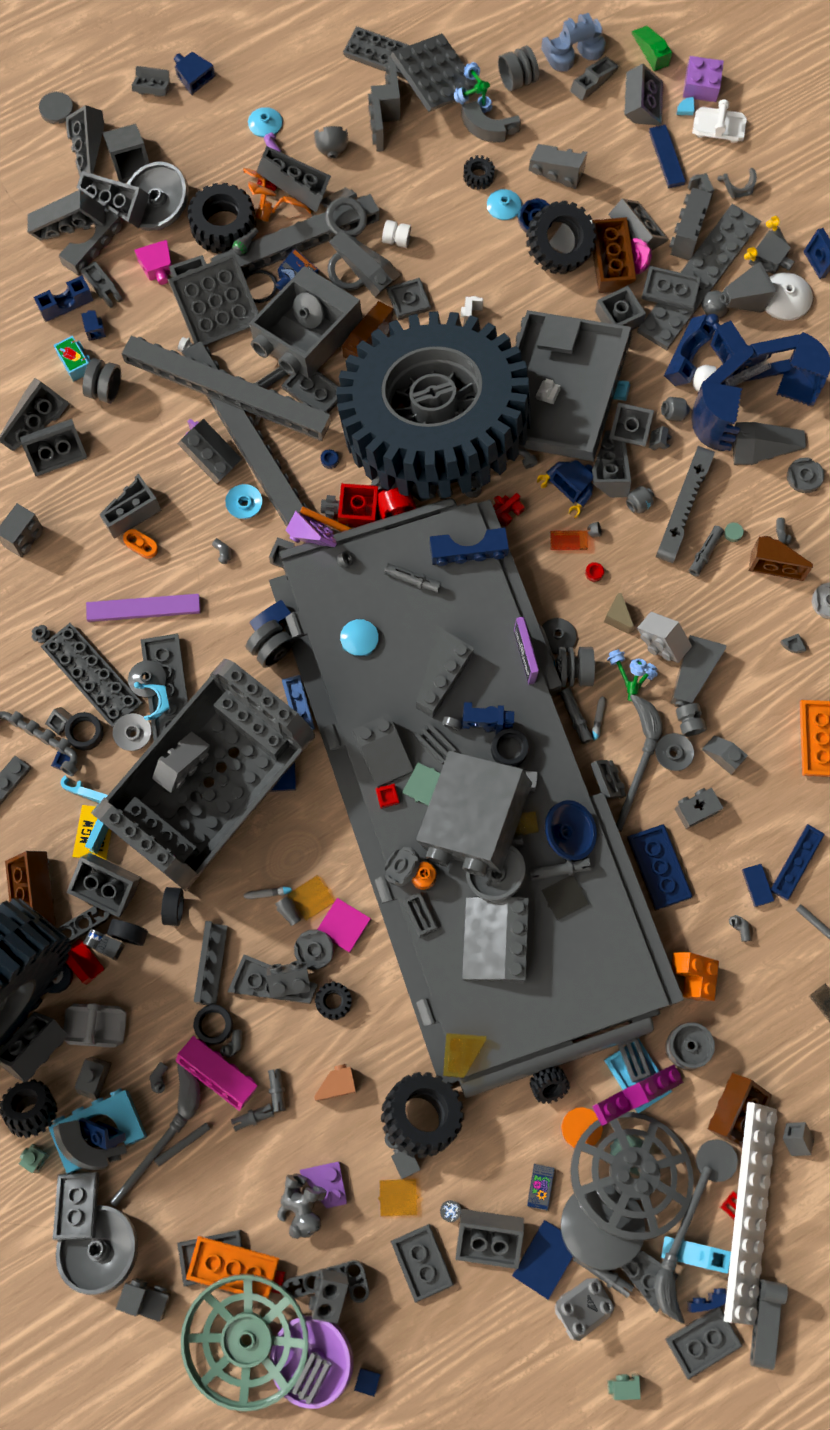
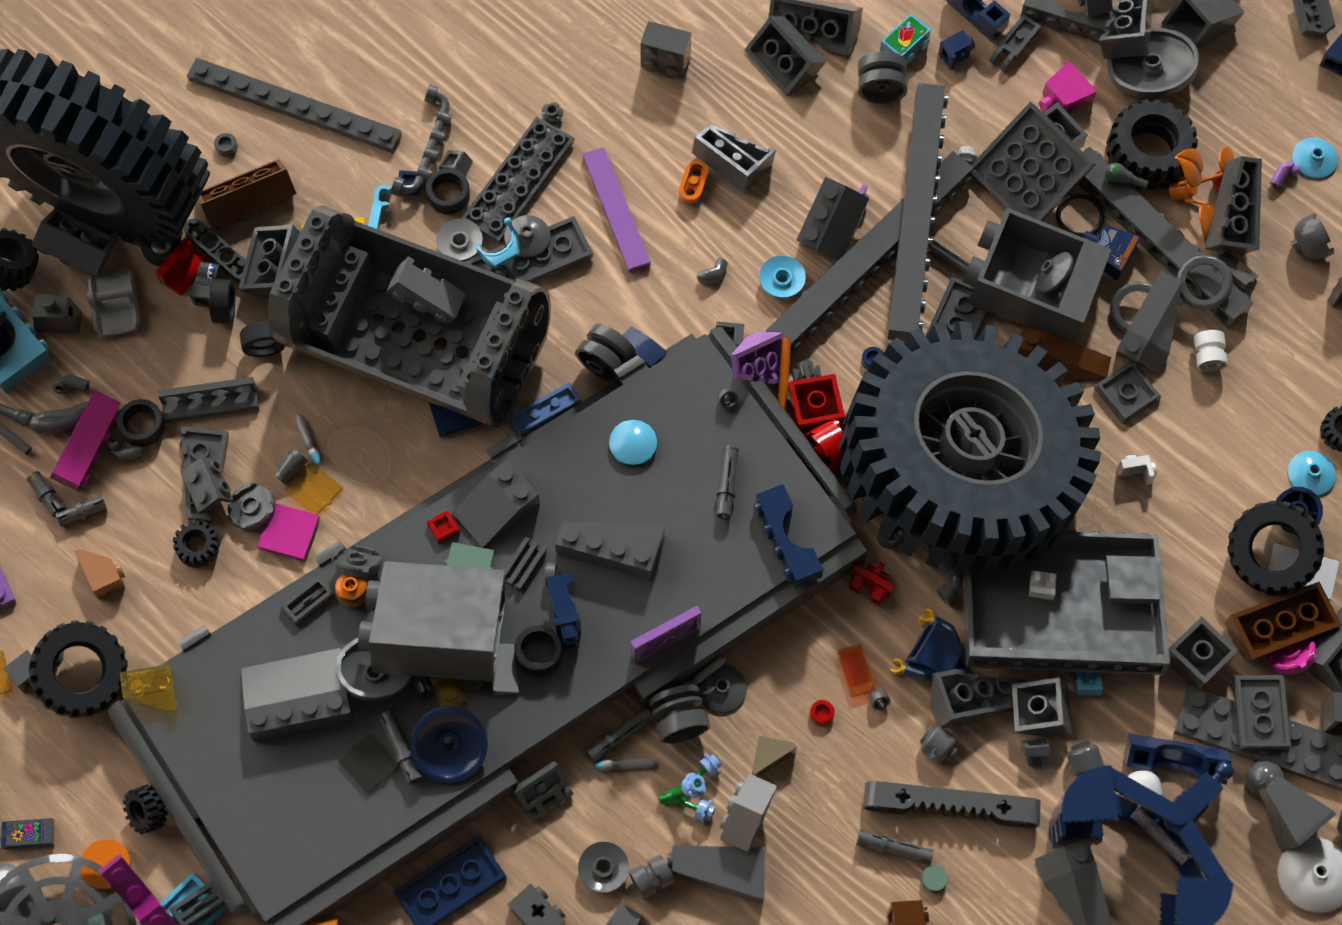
camera: 75 degrees right, 5 degrees down
(652, 729) = (626, 834): dark grey piece -> none

